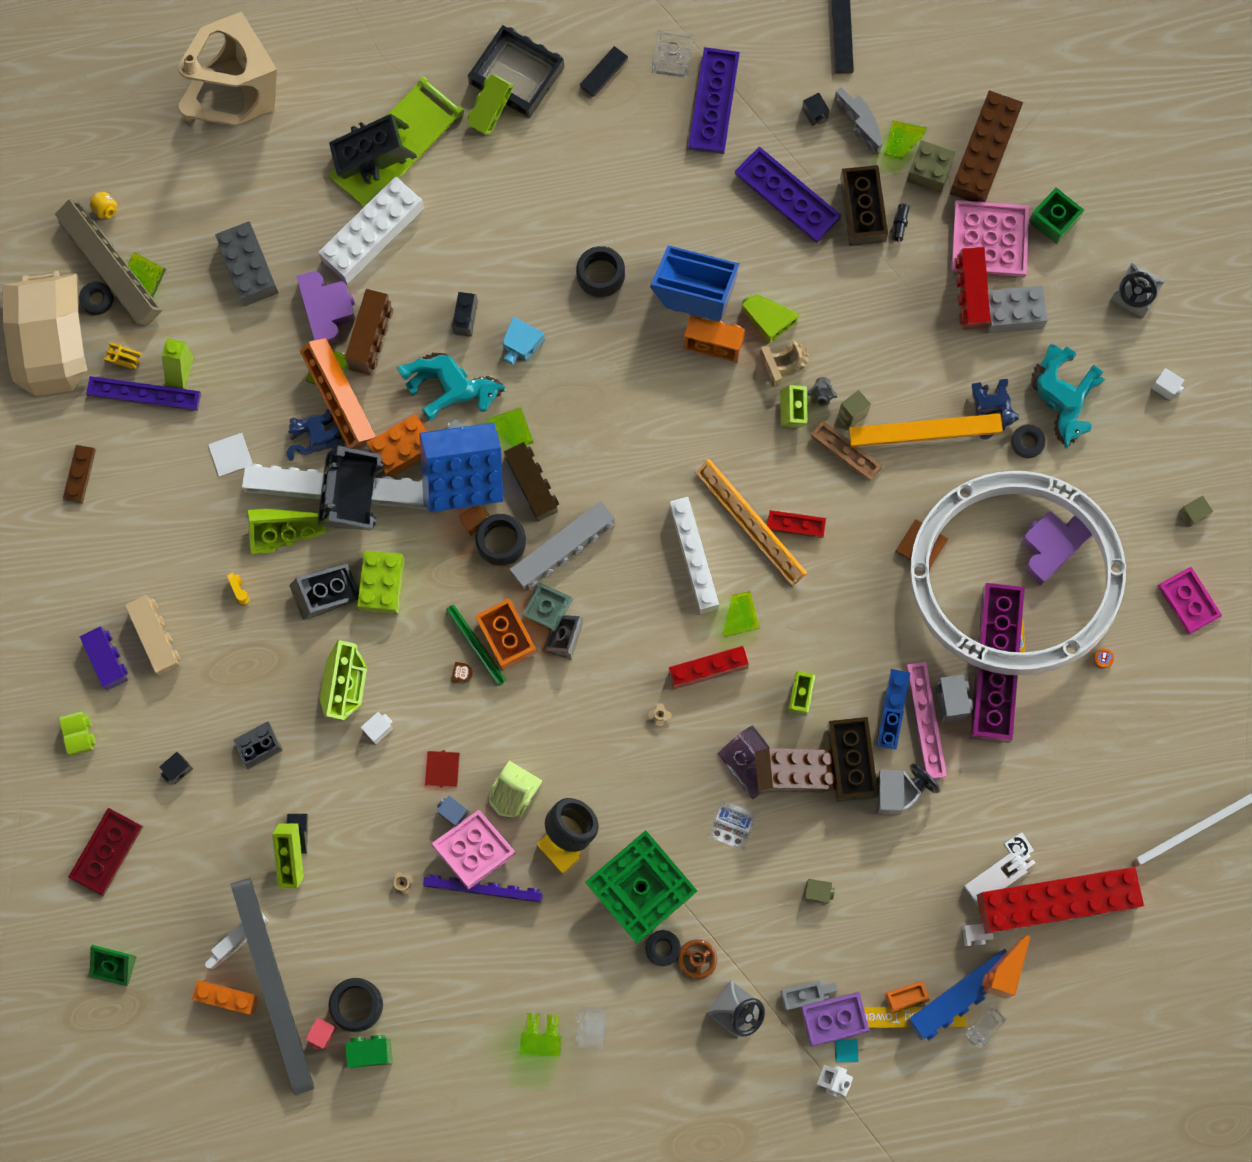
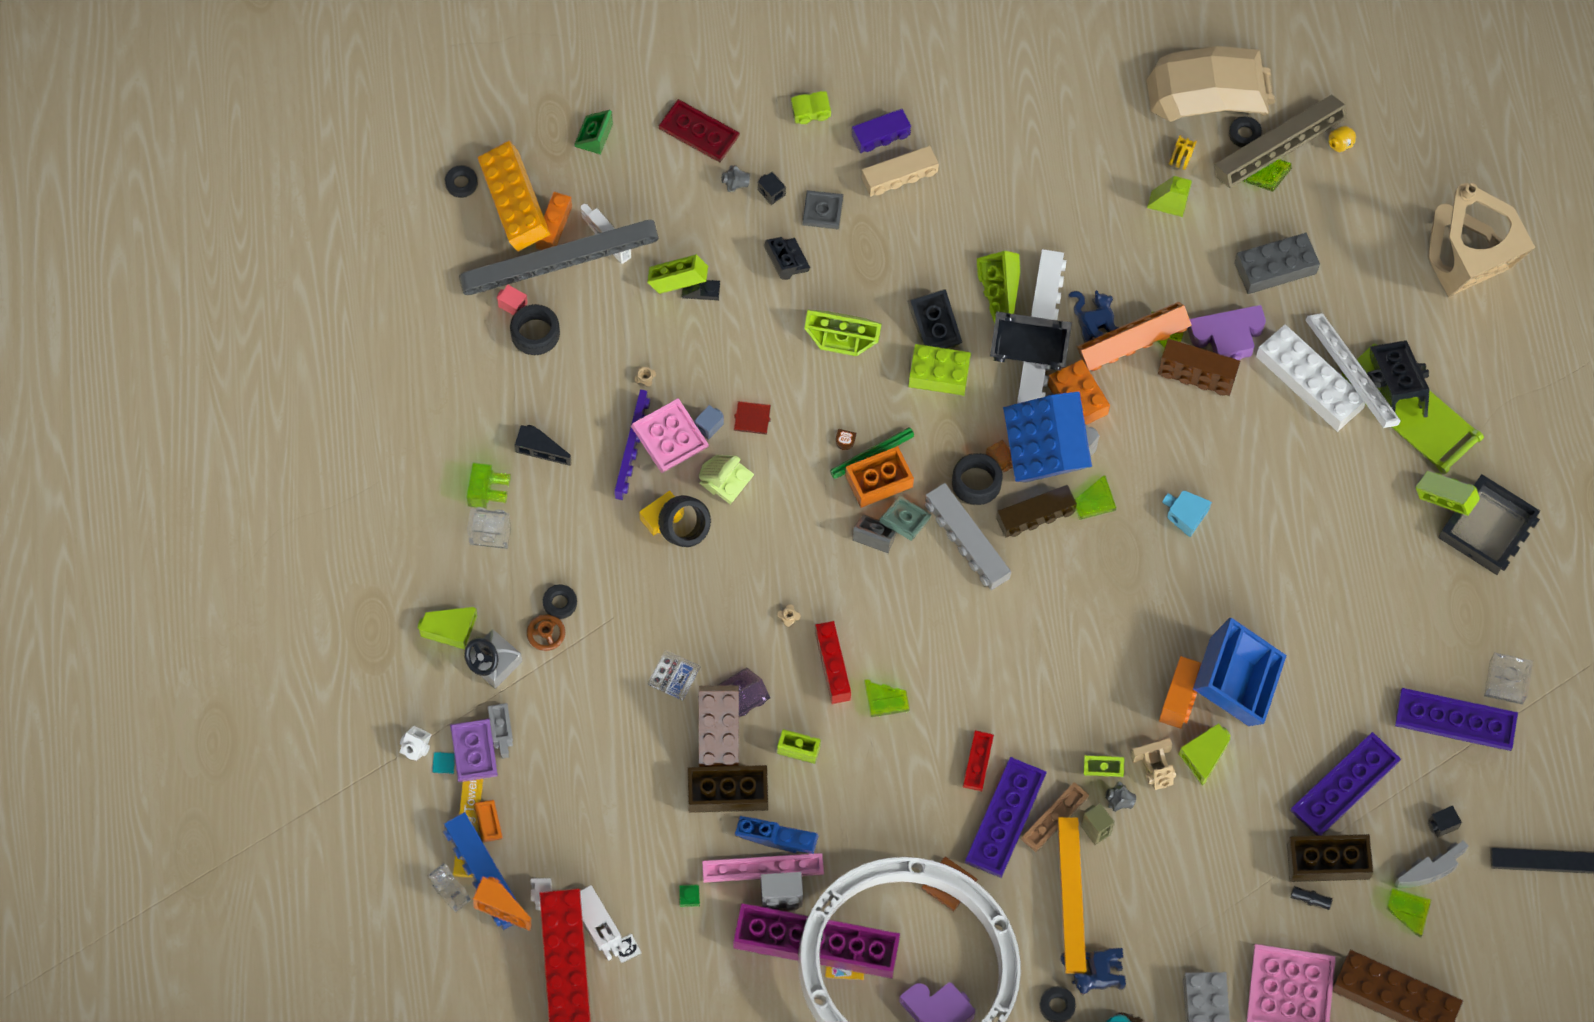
camera: 90 degrees right, 10 degrees down
(79, 474) = (1065, 115): reddish brown plate -> none
(143, 393) = (1144, 170): dark purple plate -> none
(166, 806) = (735, 178): none -> dark grey rock
(167, 1097) = (465, 191): none -> black tyre
(197, 713) = (822, 209): none -> dark grey tile
(198, 1043) = (513, 196): none -> light orange brick
(230, 454) = (1079, 246): white sticker -> none
(240, 594) = (941, 244): yellow plate -> none
(364, 190) = (1353, 370): none -> white tile
(368, 1052) = (490, 336): green brick -> none
(377, 727) = (796, 360): white brick -> none
(453, 382) = (1144, 443): teal animal -> none
(465, 314) = (1217, 459): black brick -> none
(488, 989) = (538, 445): none -> black slope
(595, 254) = (1253, 607): black tyre -> none
(603, 71) = (1491, 612): black tile -> none
(647, 865) = (617, 576): green piece -> none
(694, 555) = (950, 658): white brick -> none
(702, 1060) = (449, 626): none -> lime slope
(751, 522) = (982, 716): light orange tile -> none
(819, 891) = (599, 747): olive brick -> none
(851, 495) = (1005, 817): none -> dark purple plate
(899, 792) = (691, 828): light grey piece -> none
(930, 166) = (1375, 934): olive brick -> none
(960, 789) = (689, 895): none -> green plate
(973, 288) = (1229, 955): red brick -> none

